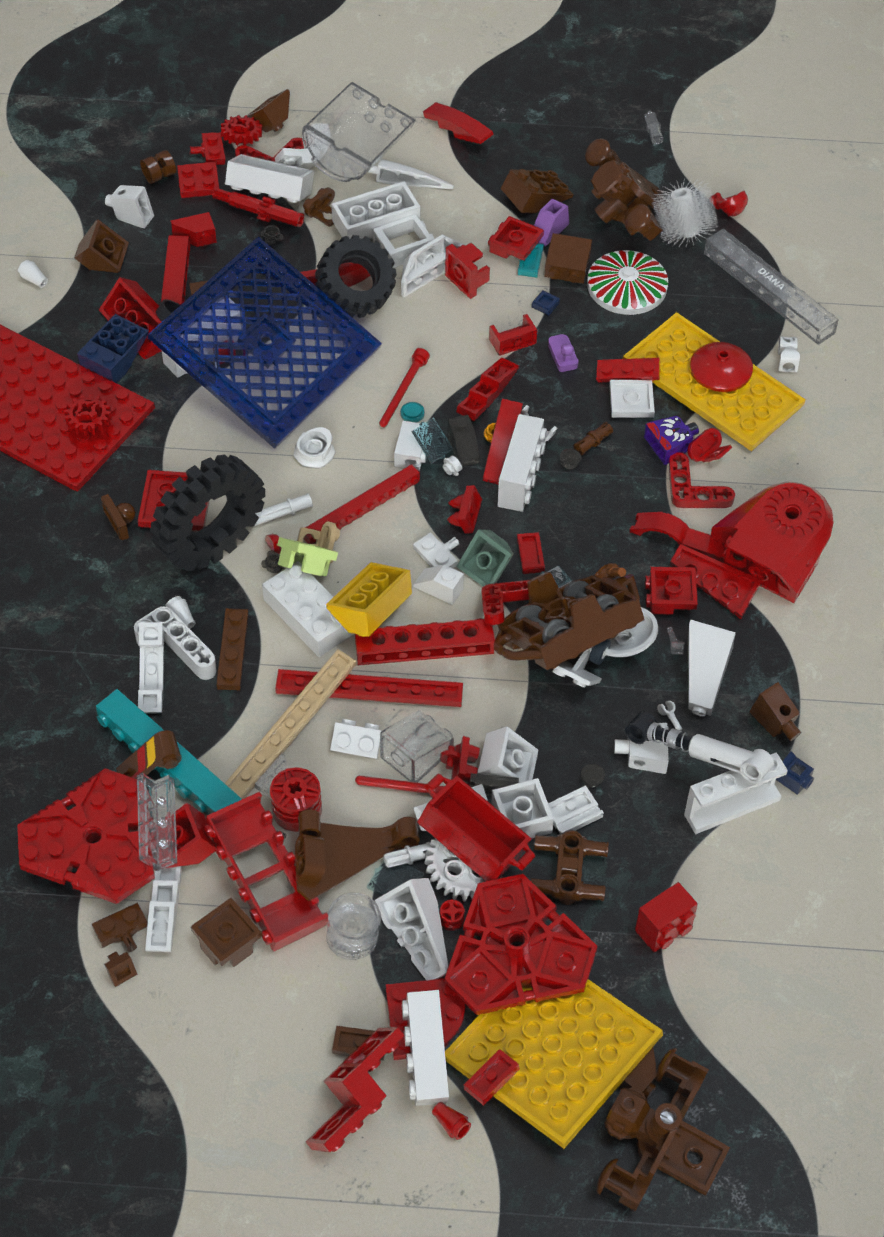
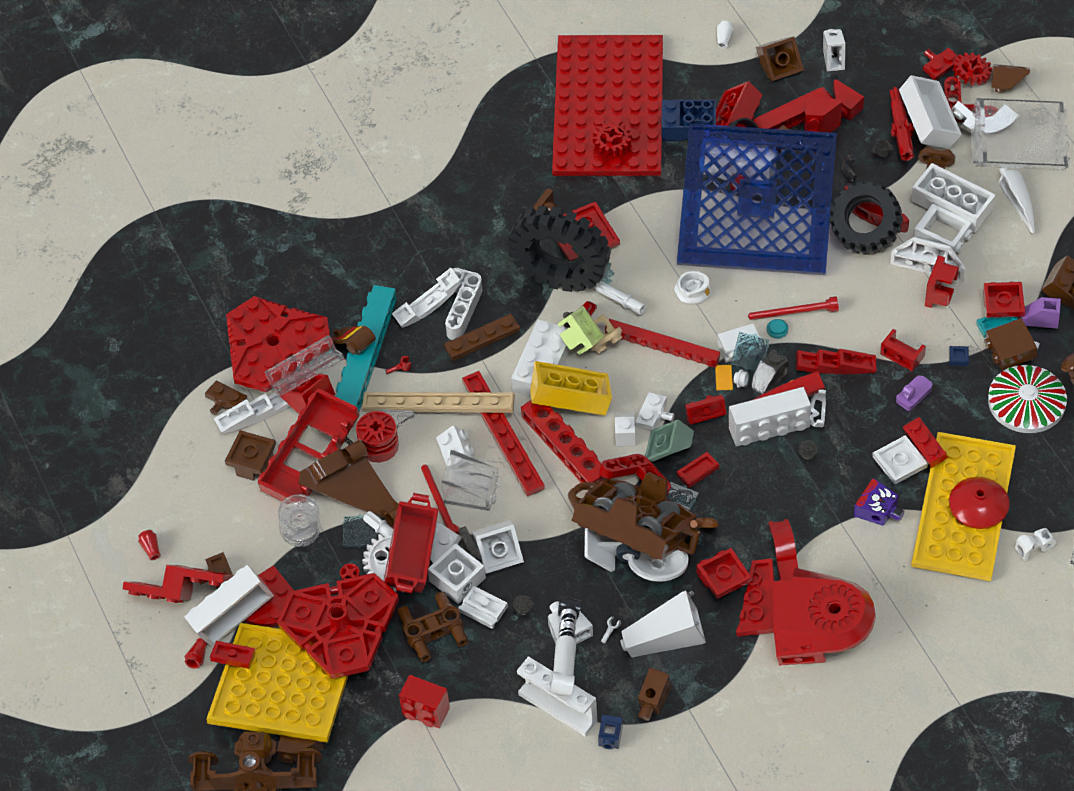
camera: 65 degrees right, 0 degrees up
(120, 968) = (192, 412): reddish brown tile -> none
(158, 166) = (883, 40): reddish brown wheel -> none
(181, 609) = (489, 288): white cone -> none
(197, 179) = (899, 70): red plate -> none
(202, 253) = (822, 114): none -> red slope
(212, 736) = (404, 365): none -> red hand
(268, 1101) = (149, 543): none -> red cone
(415, 919) = (337, 550): white wedge -> none
(436, 480) = (724, 377): none -> light orange sticker
(457, 758) = (486, 515): red hips -> none
(593, 438) = (839, 454): reddish brown pin -> none
(691, 493) = (837, 540): red beam -> none
(707, 446) = (888, 532): red bracket -> none

